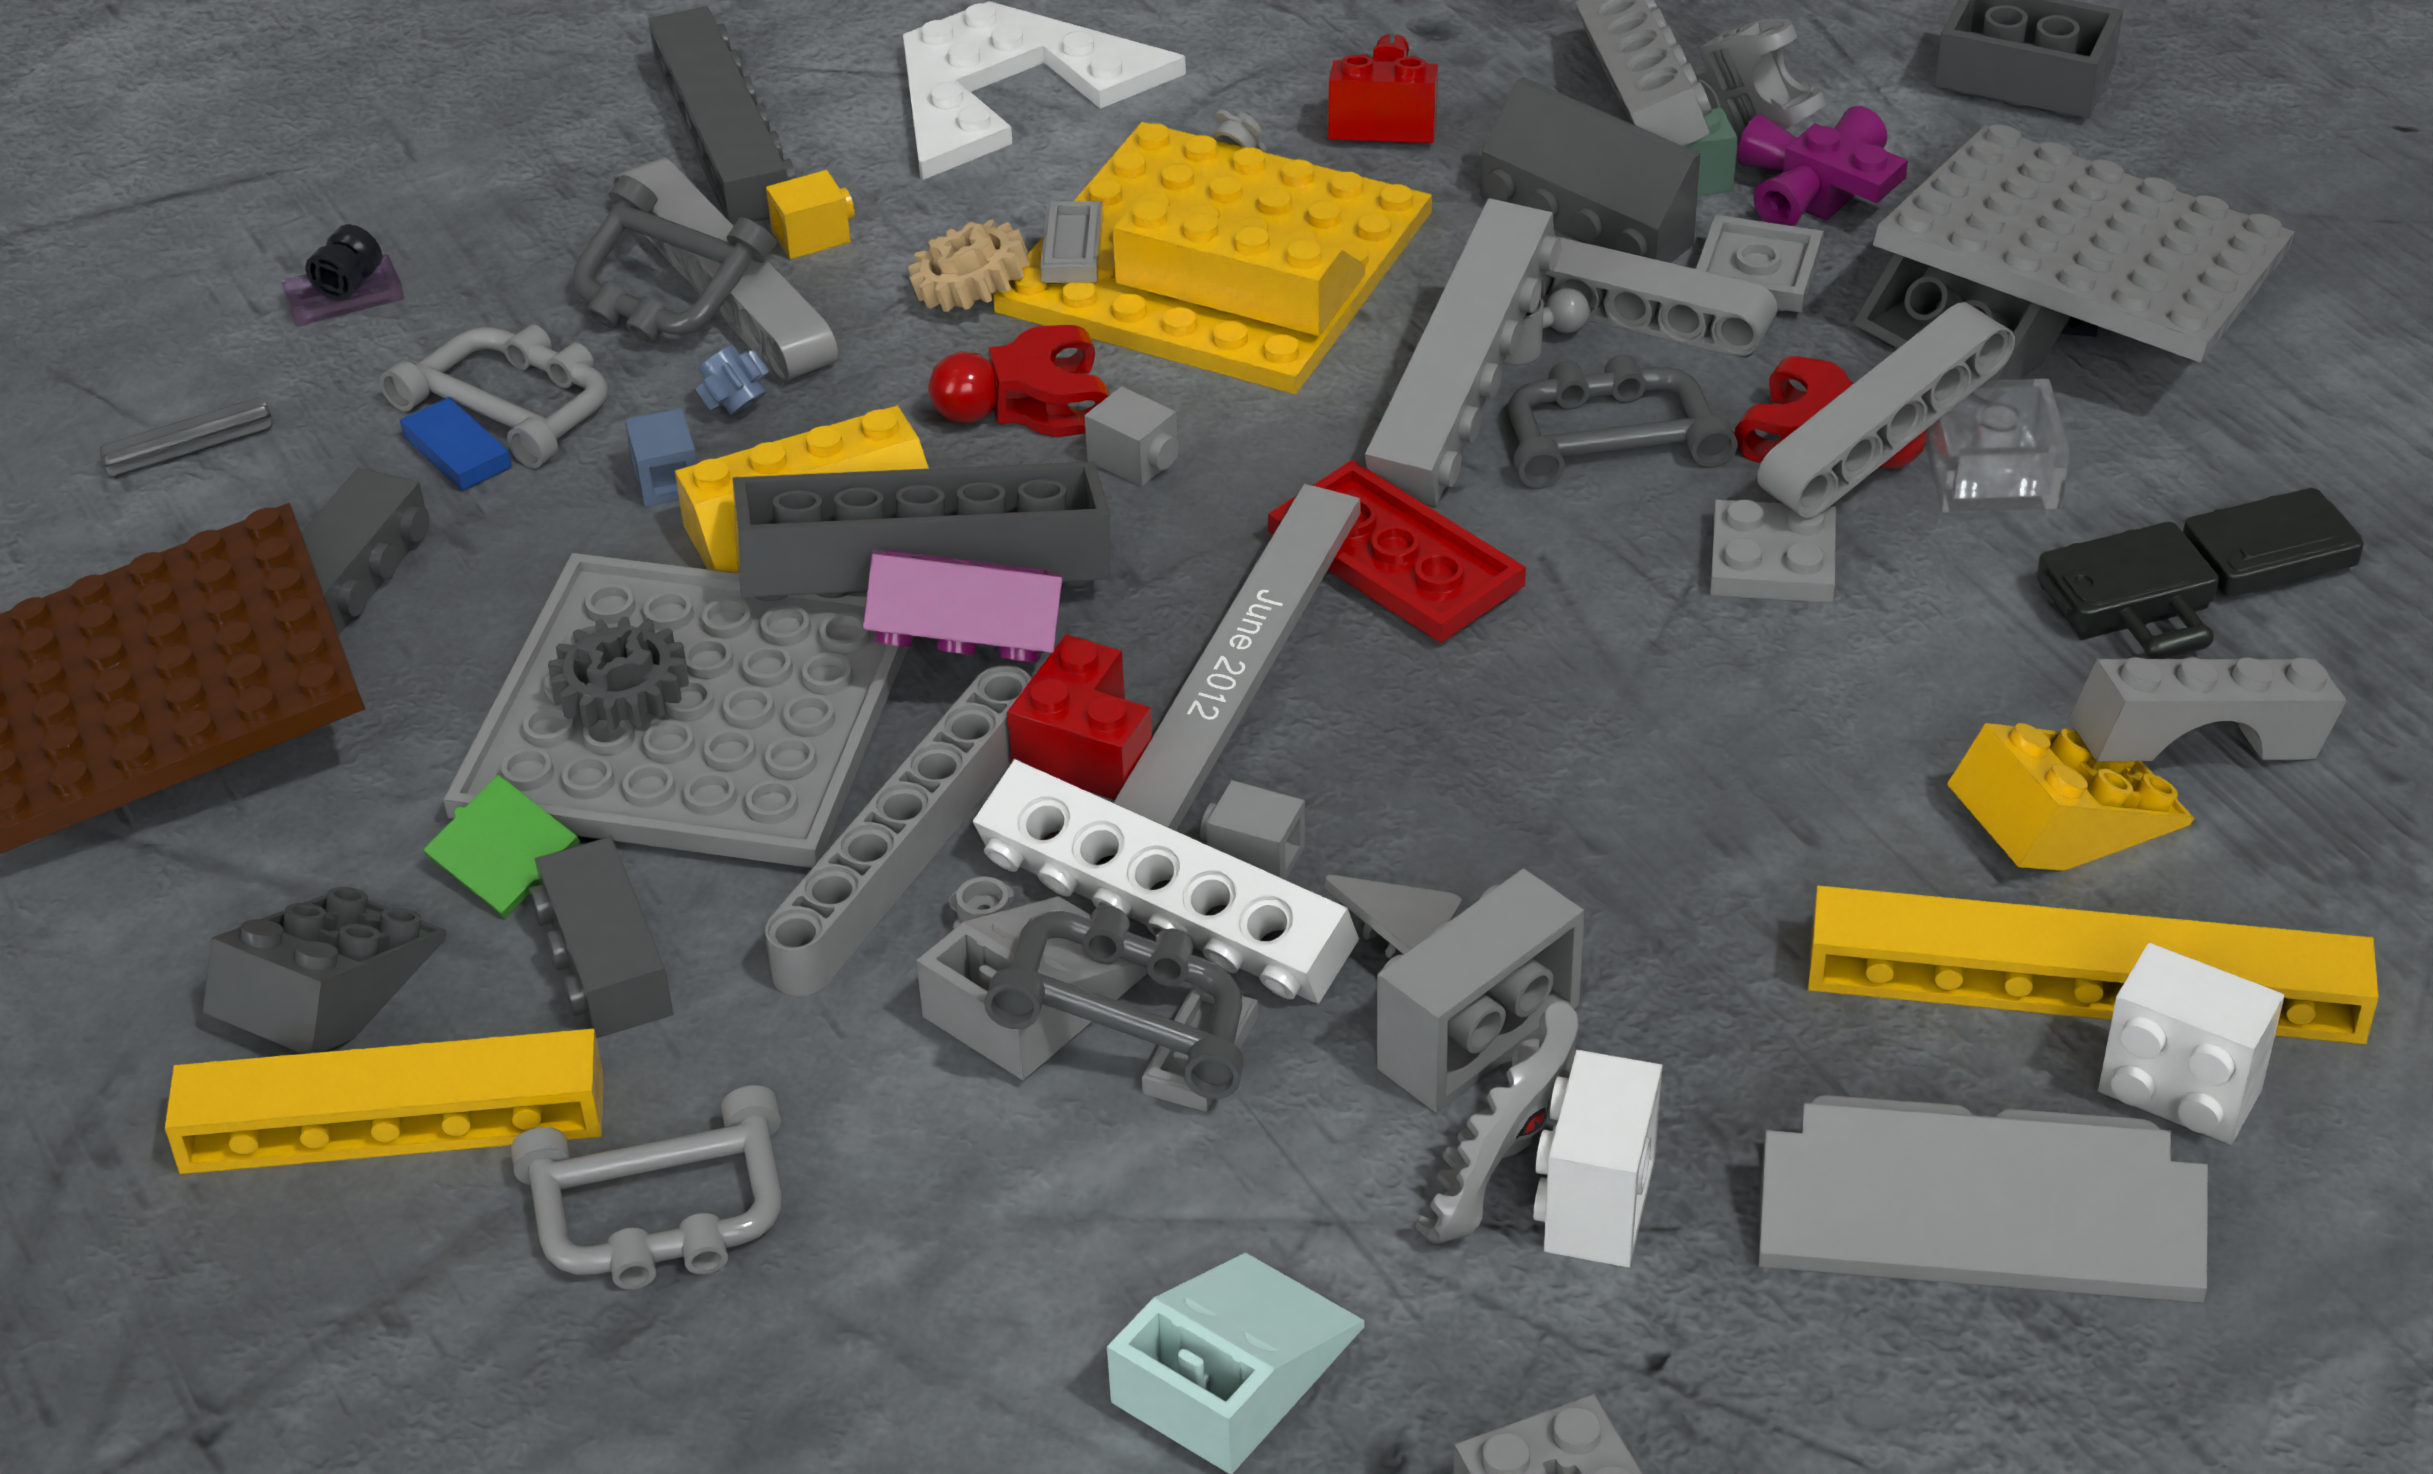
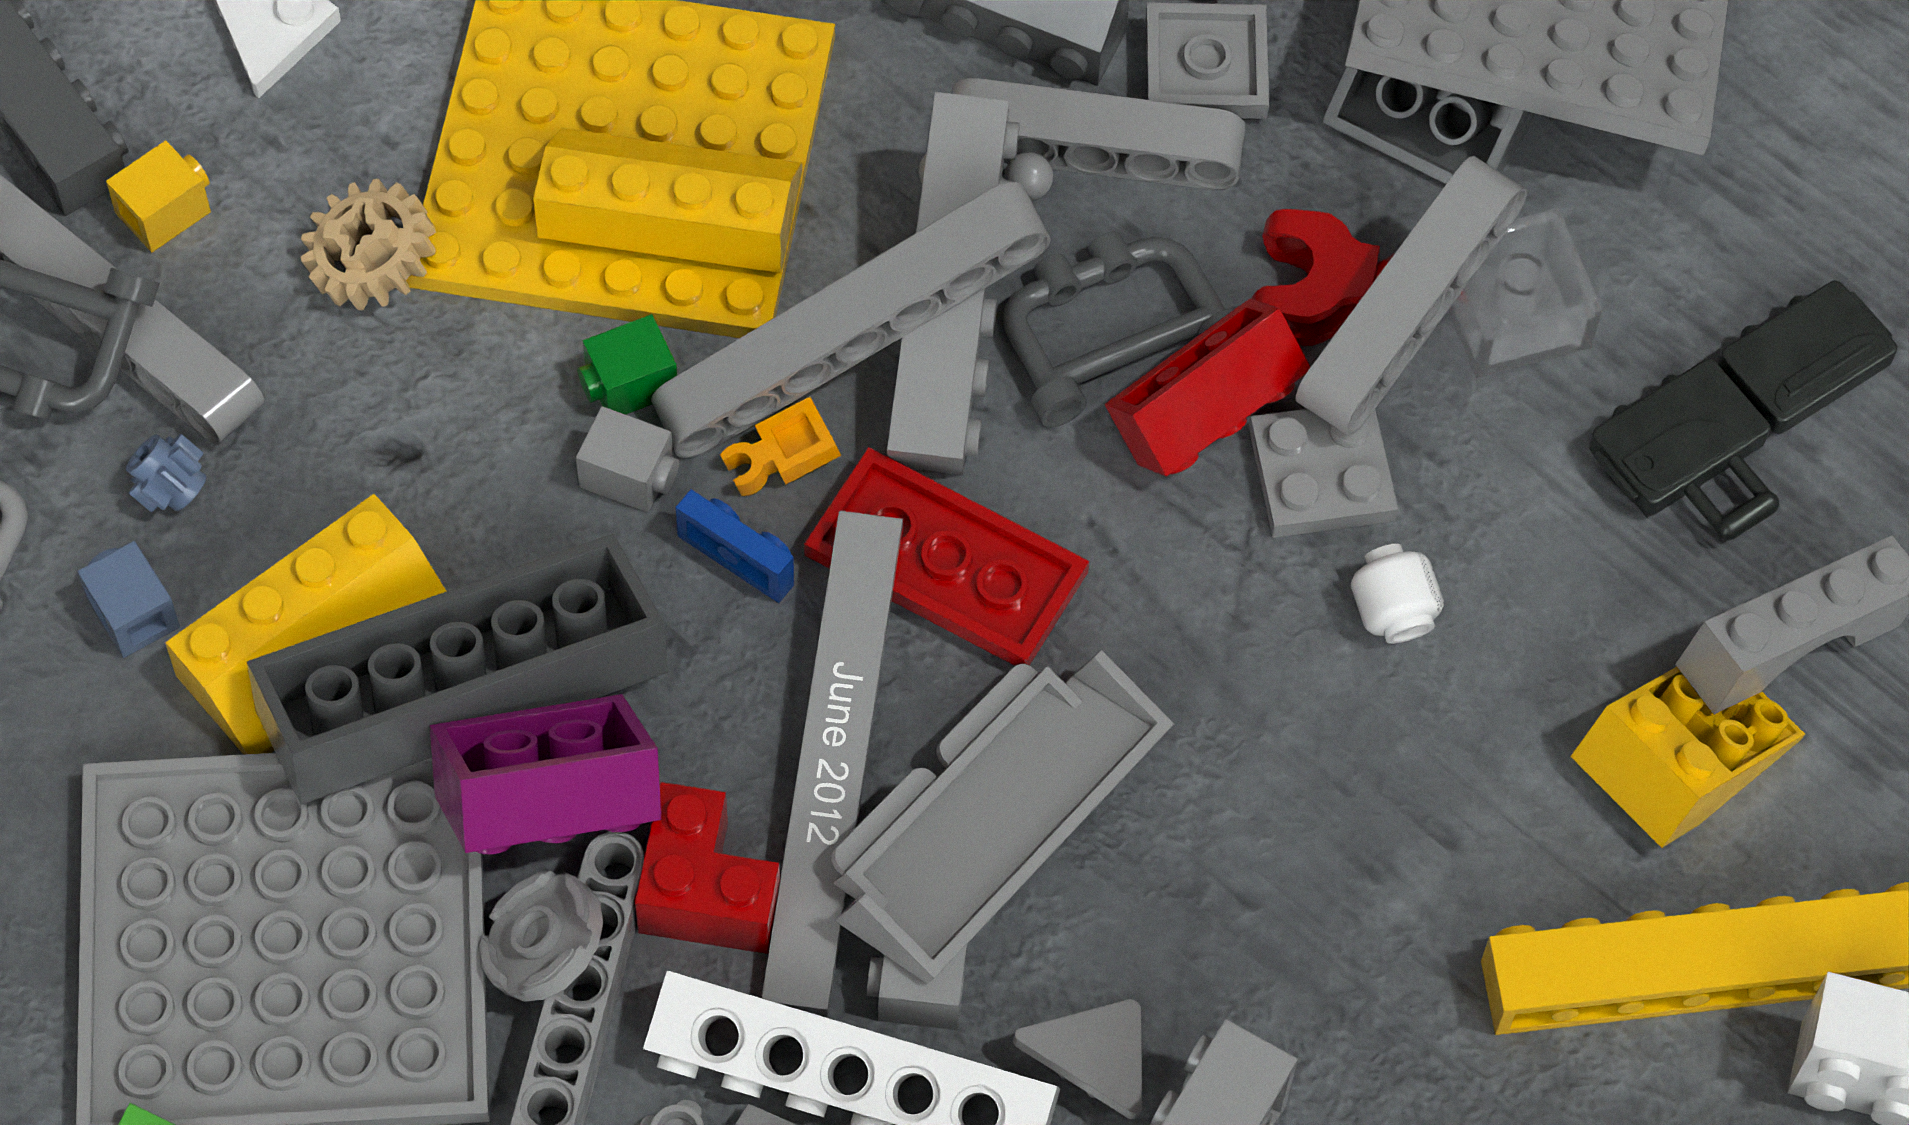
camera: 20 degrees left, 20 degrees up
(618, 673) = (229, 959): dark grey gear -> none
(914, 724) = (541, 936): none -> light grey tile
(1022, 382) = (485, 409): red piece -> none
(1071, 242) = (473, 190): light grey tile -> none
(1162, 372) = (626, 365): none -> green brick
(1206, 508) = (720, 535): none -> blue plate
(1281, 452) = (790, 443): none -> light orange plate
(1361, 347) = (851, 319): none -> light grey beam
(1368, 716) = (1012, 789): none -> light grey slope
(1677, 464) = (1208, 388): none -> red brick
(1812, 638) = (1397, 594): none -> white head

